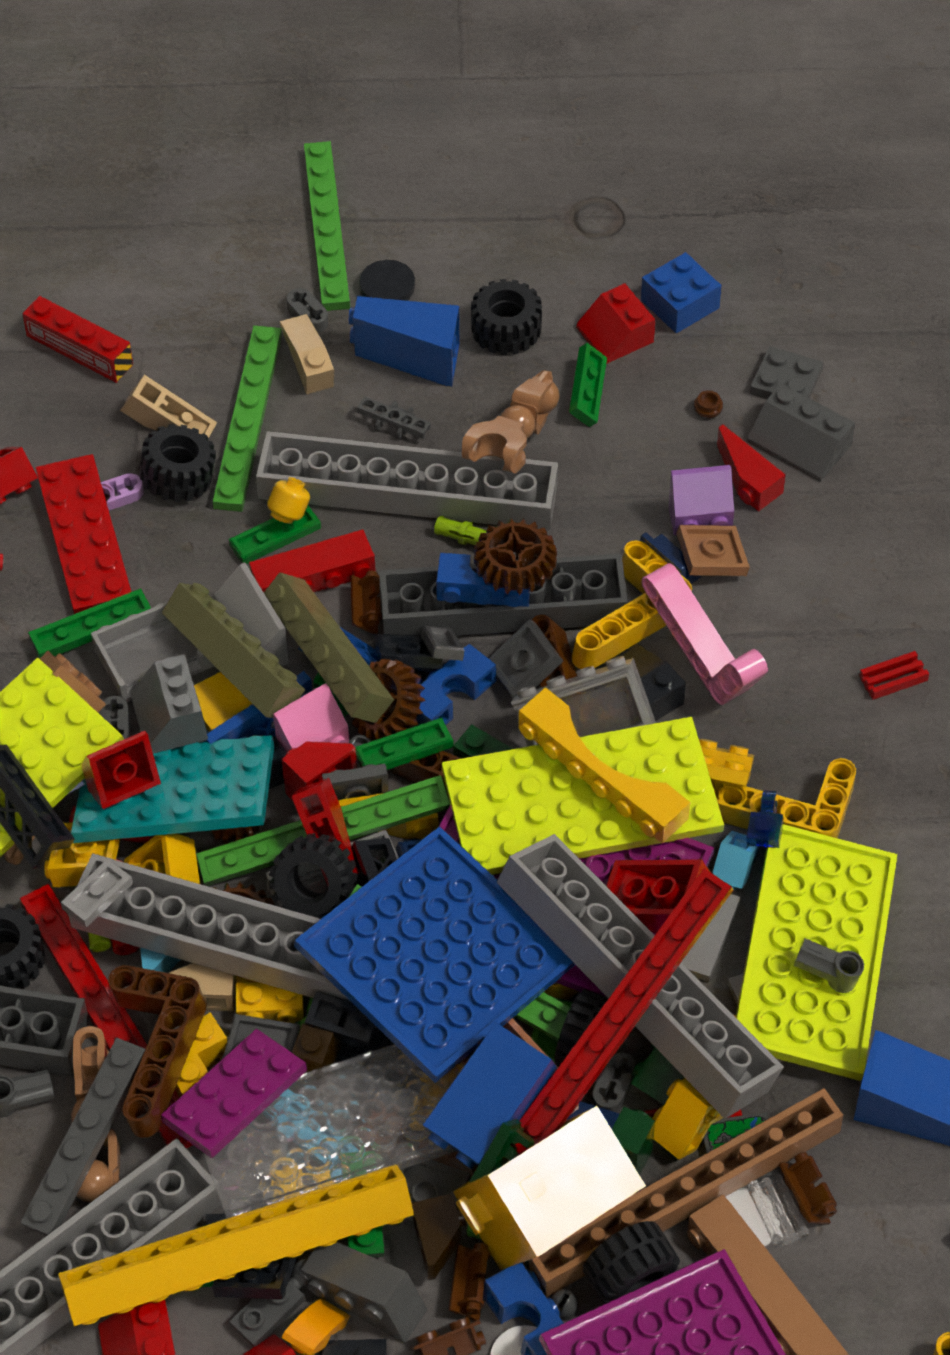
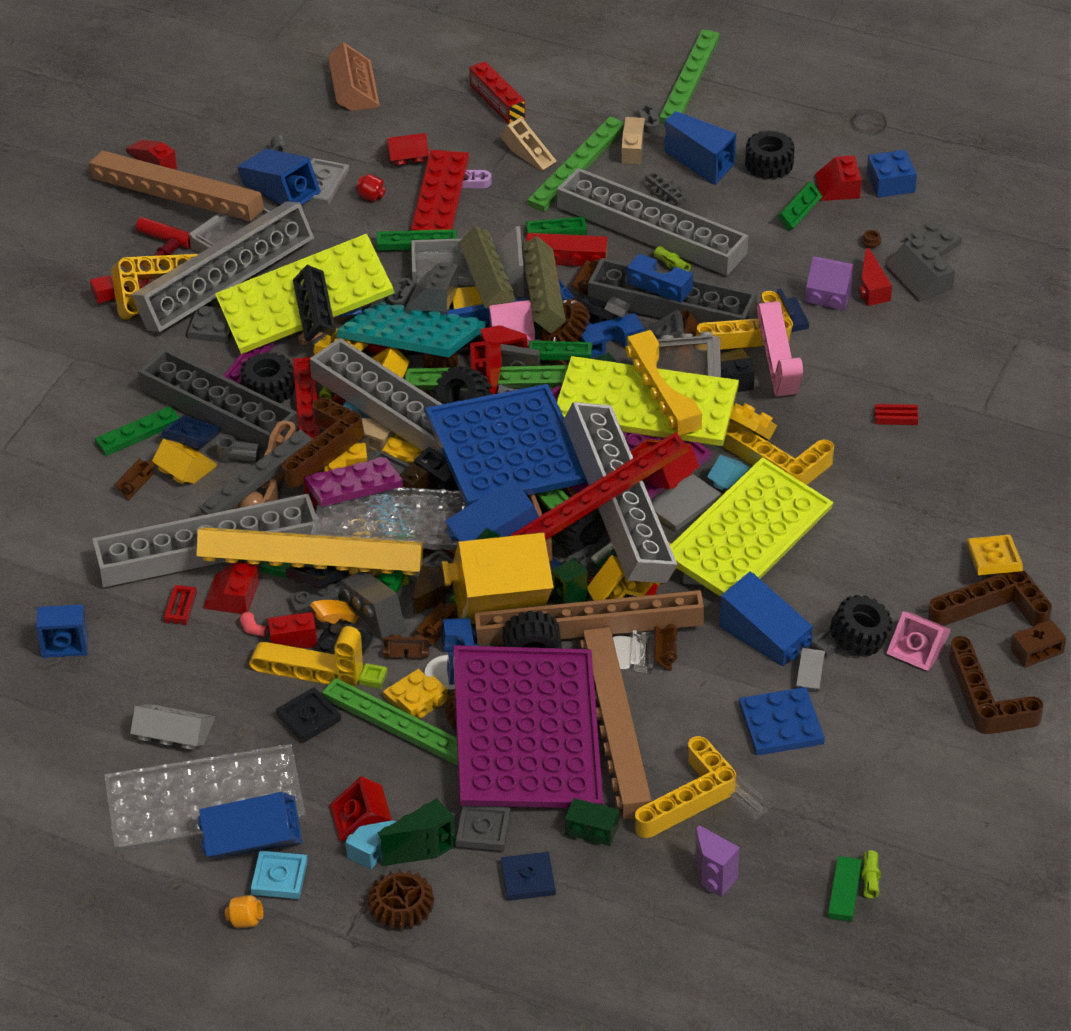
camera: 25 degrees right, 10 degrees down
(69, 674) = (388, 264): medium nougat plate -> none
(96, 892) = (329, 354): light grey plate -> none
(121, 770) = (382, 302): red slope -> none
(177, 463) = (516, 171): black tyre -> none
(288, 500) = (570, 208): yellow head -> none
(387, 280) = (711, 114): black tile -> none
(498, 563) = (681, 265): reddish brown gear -> none
(508, 433) = (724, 211): medium nougat piece -> none
(712, 550) = (820, 313): medium nougat plate -> none
(766, 826) = (756, 457): clear blue plate -> none
(829, 965) = (751, 537): dark grey piece -> none

